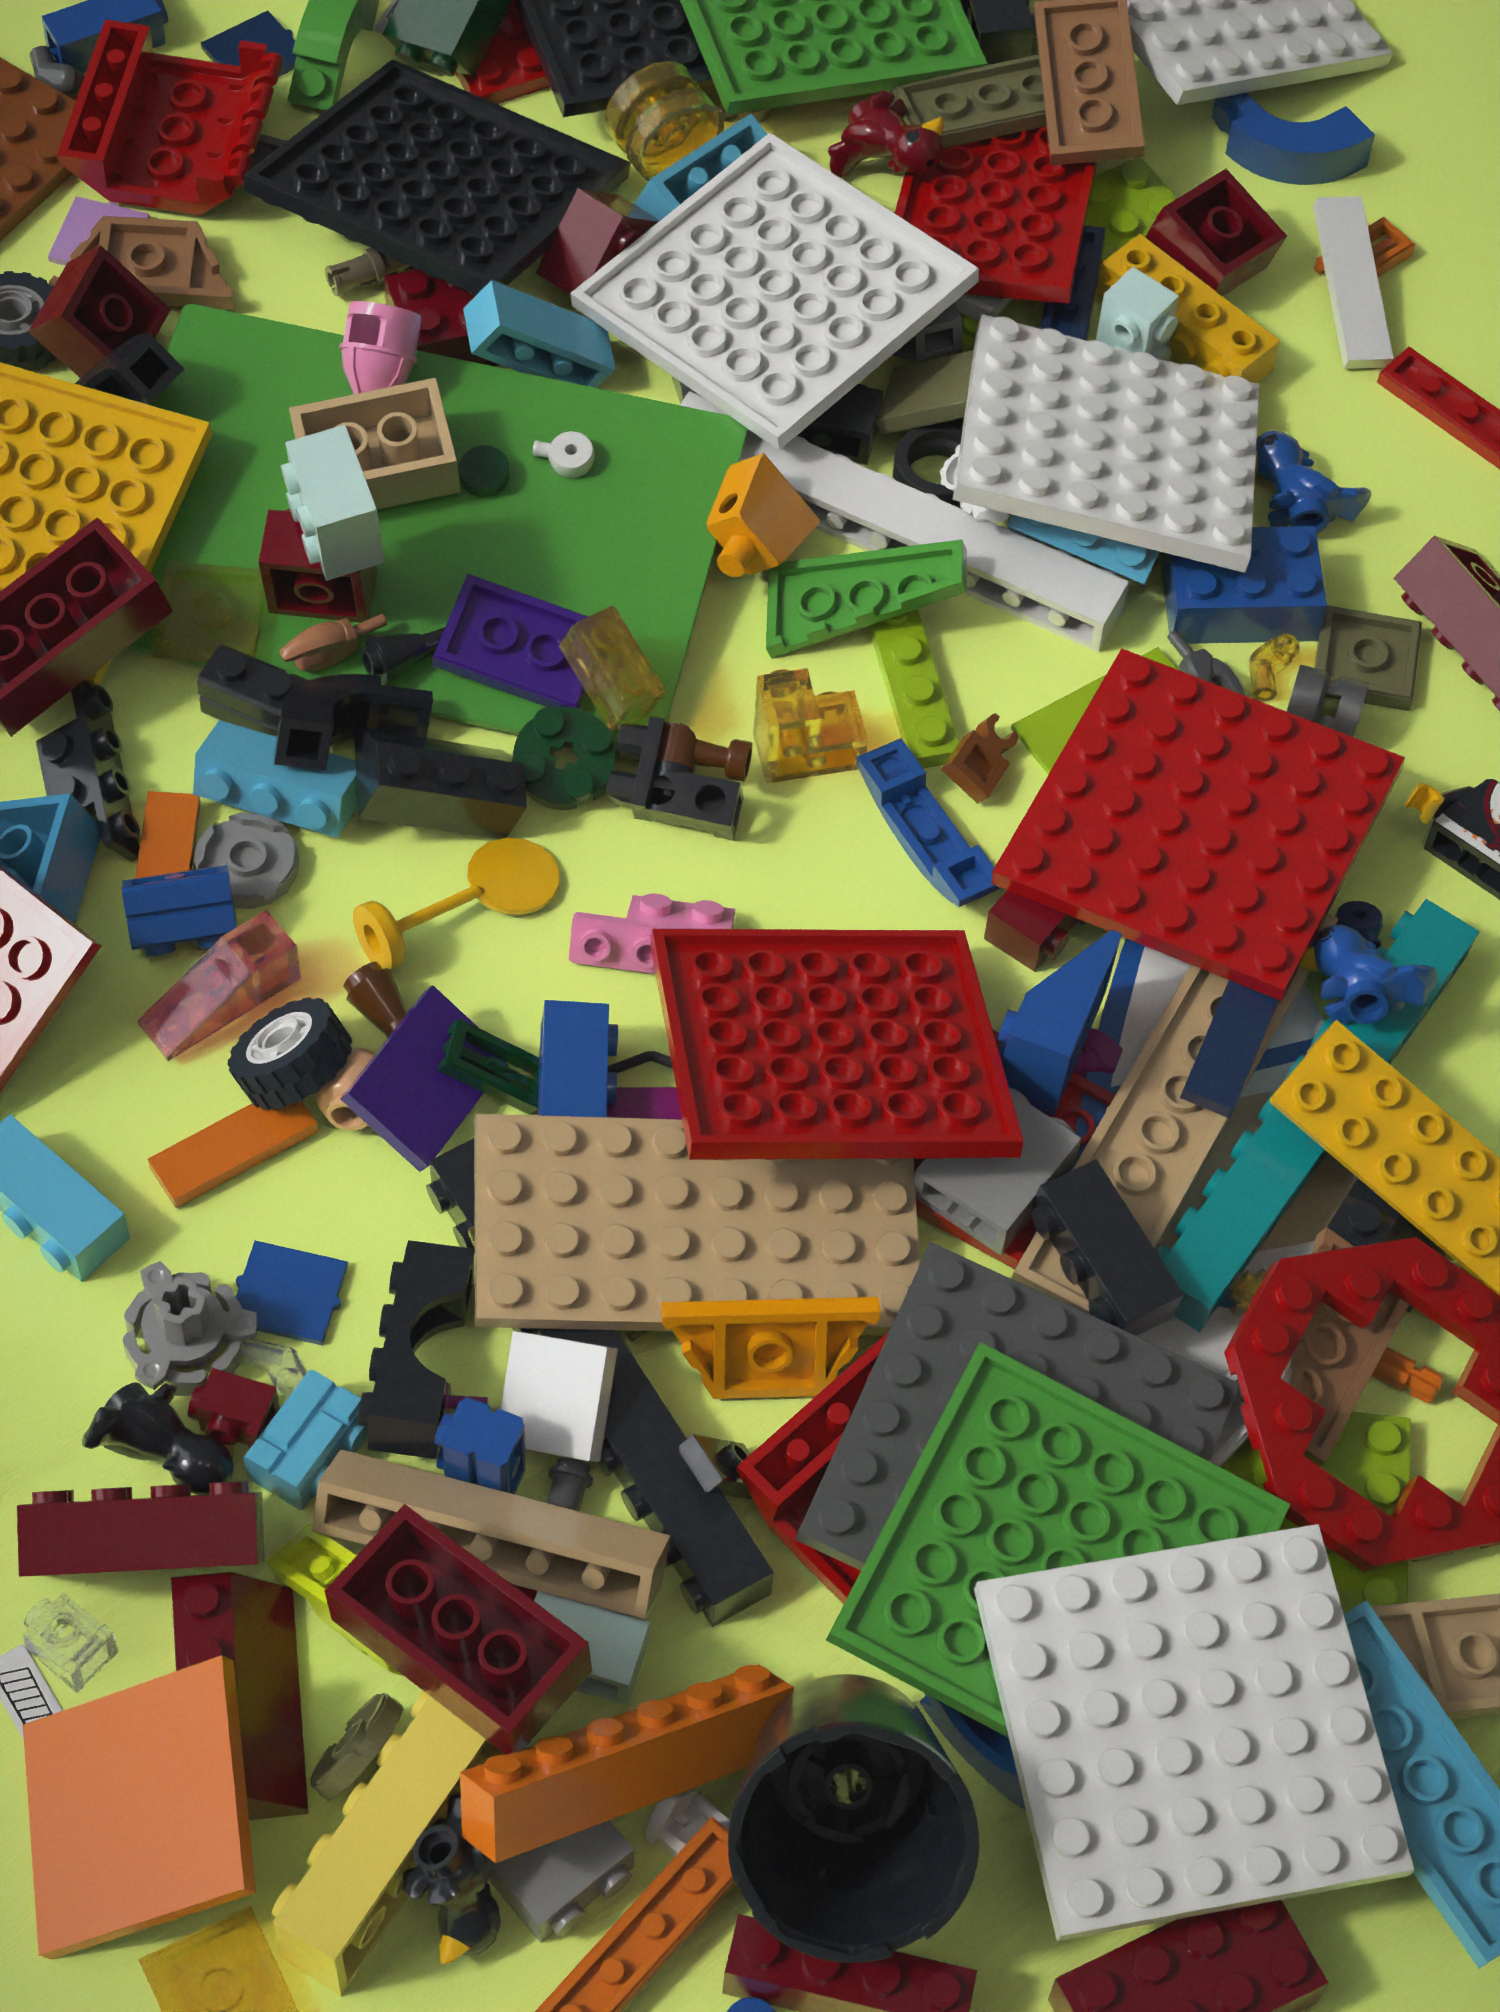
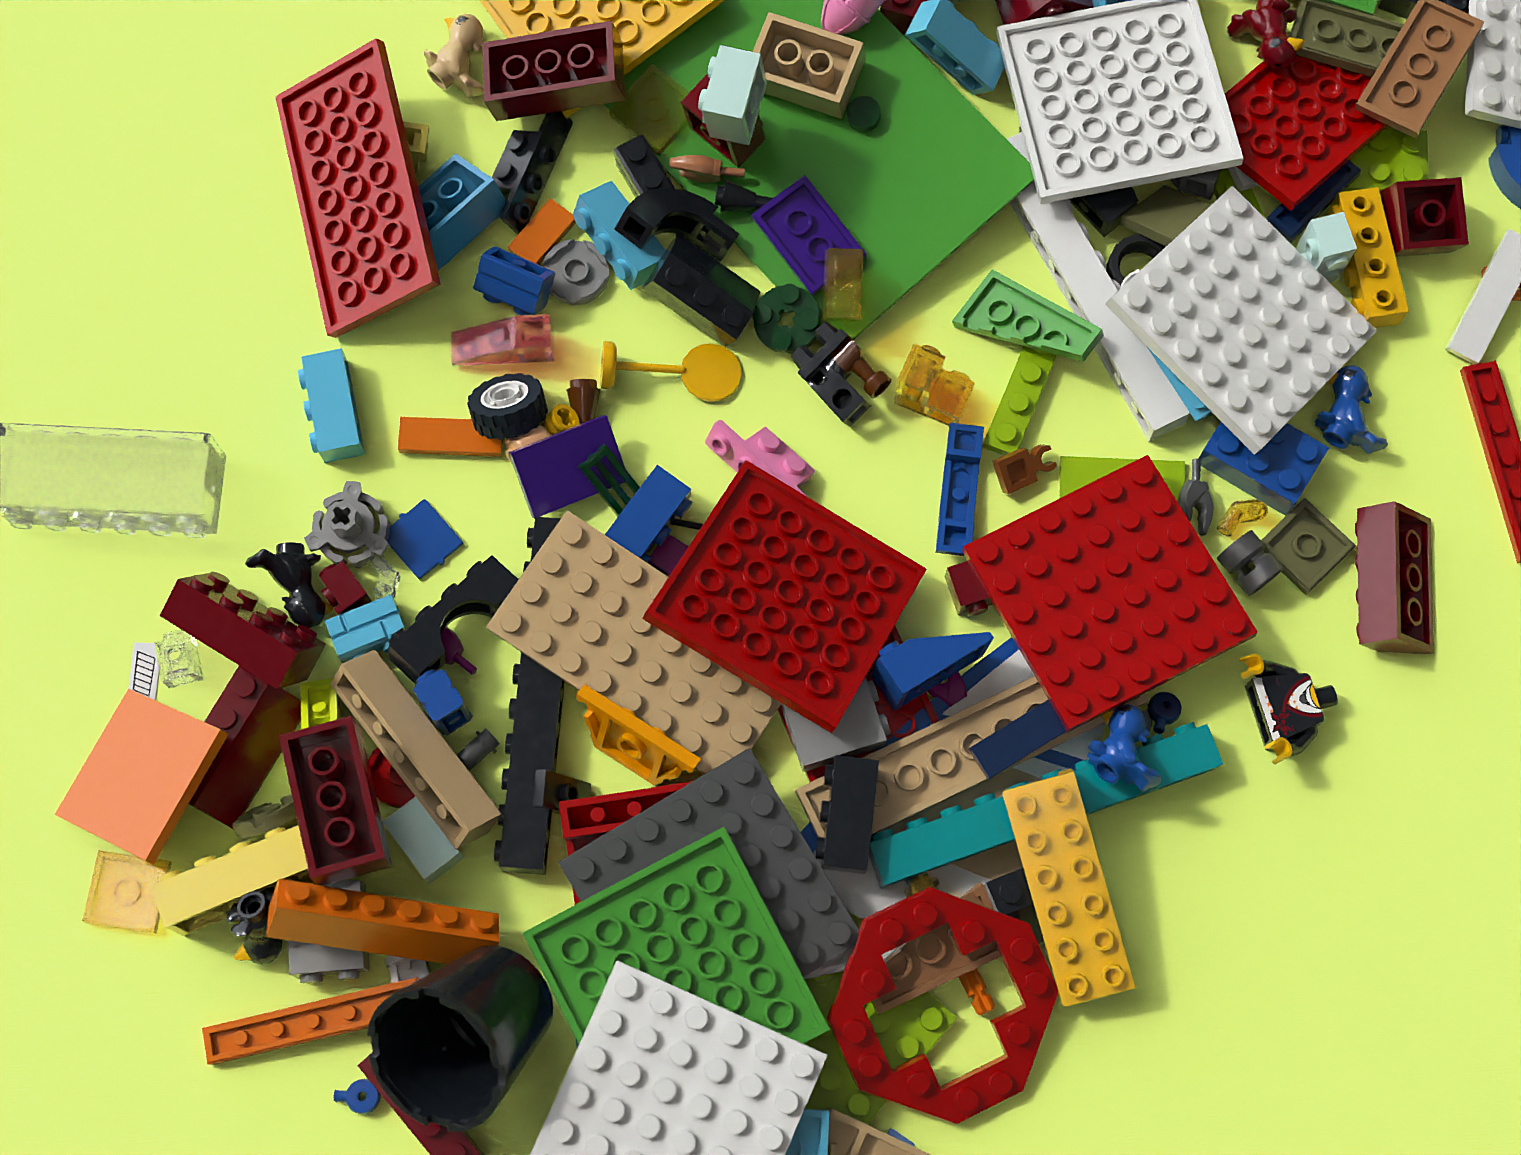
camera: 40 degrees right, 15 degrees up
(371, 1030) = (560, 419): none -> yellow bush
(560, 1393) = (503, 695): white tile -> none
(569, 453) = (915, 126): white piece -> none
(757, 518) = (999, 239): light orange torso -> none

